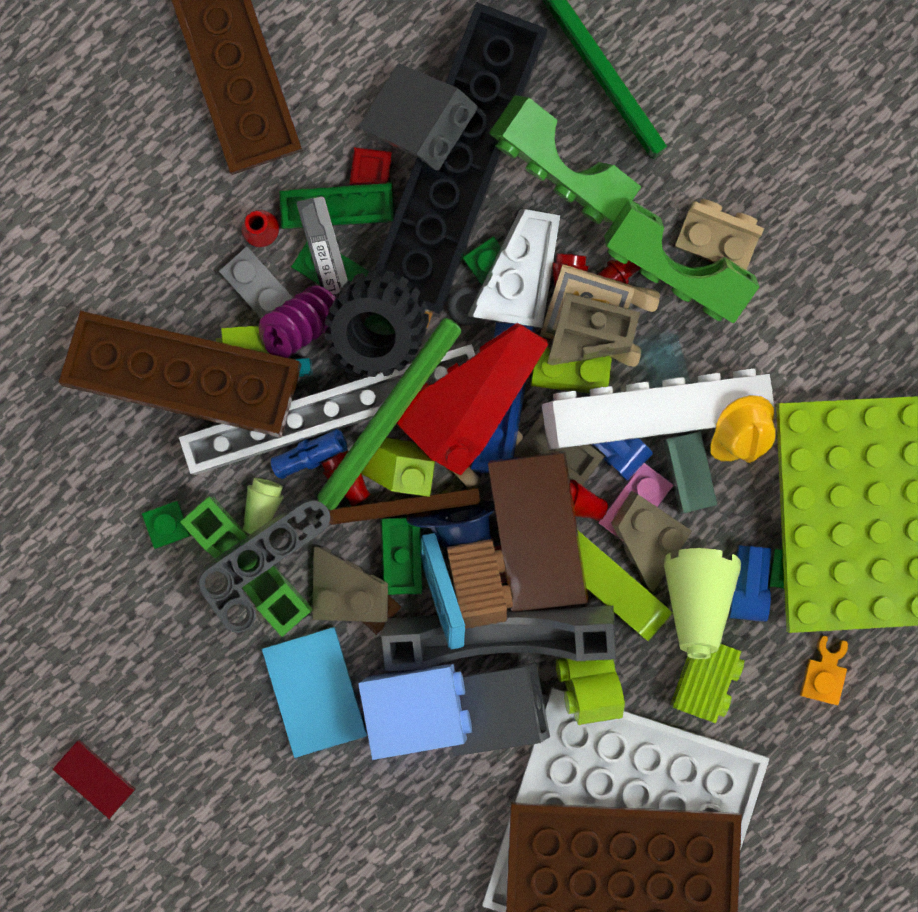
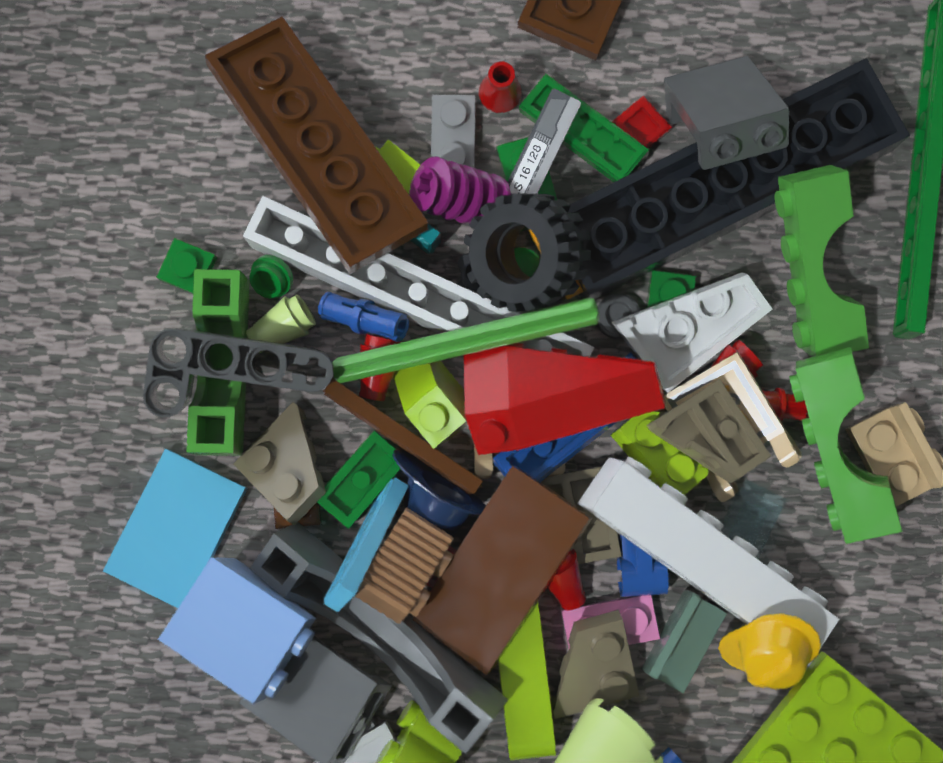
camera: 40 degrees right, 5 degrees down
(226, 482) = (271, 276): none -> green plate

